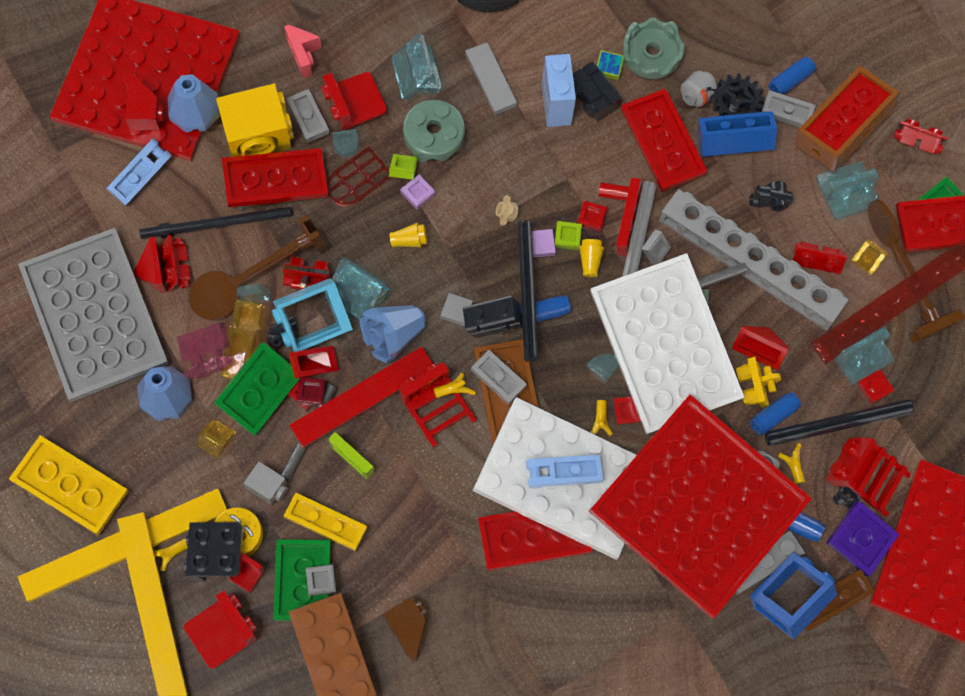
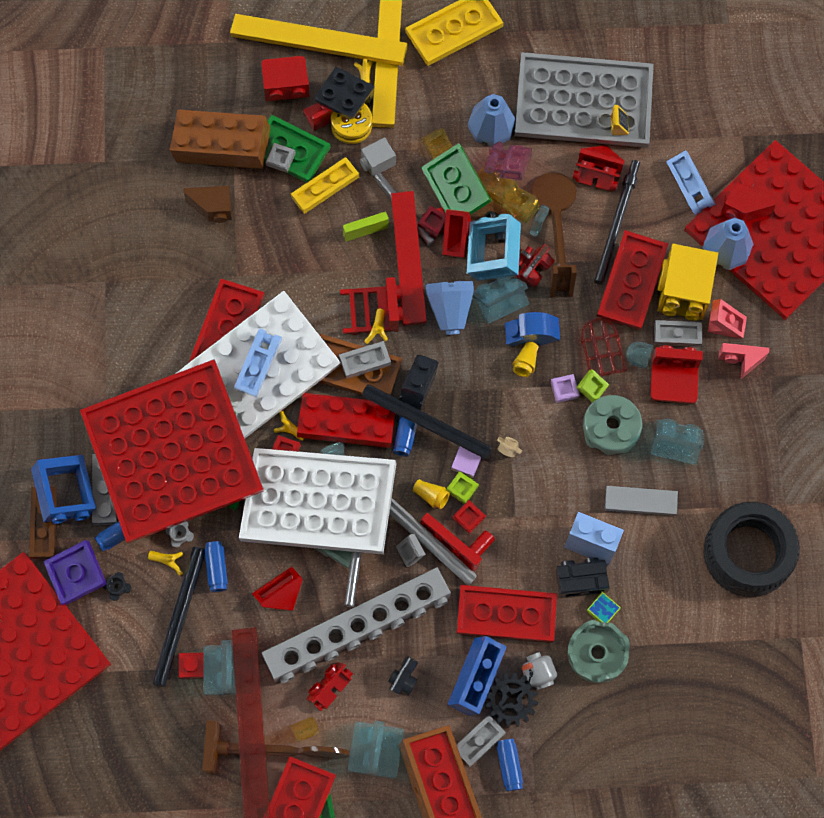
camera: 120 degrees right, 0 degrees up
(107, 264) = (619, 121): none -> yellow slope
(272, 74) = (726, 320): none -> coral slope
(378, 242) = (532, 327): none -> blue brick
(453, 309) = (447, 366): light grey tile -> none
(567, 370) = (345, 420): none -> red plate
(758, 394) = (247, 567): yellow hips -> none
(858, 464) = (134, 603): red plate -> none

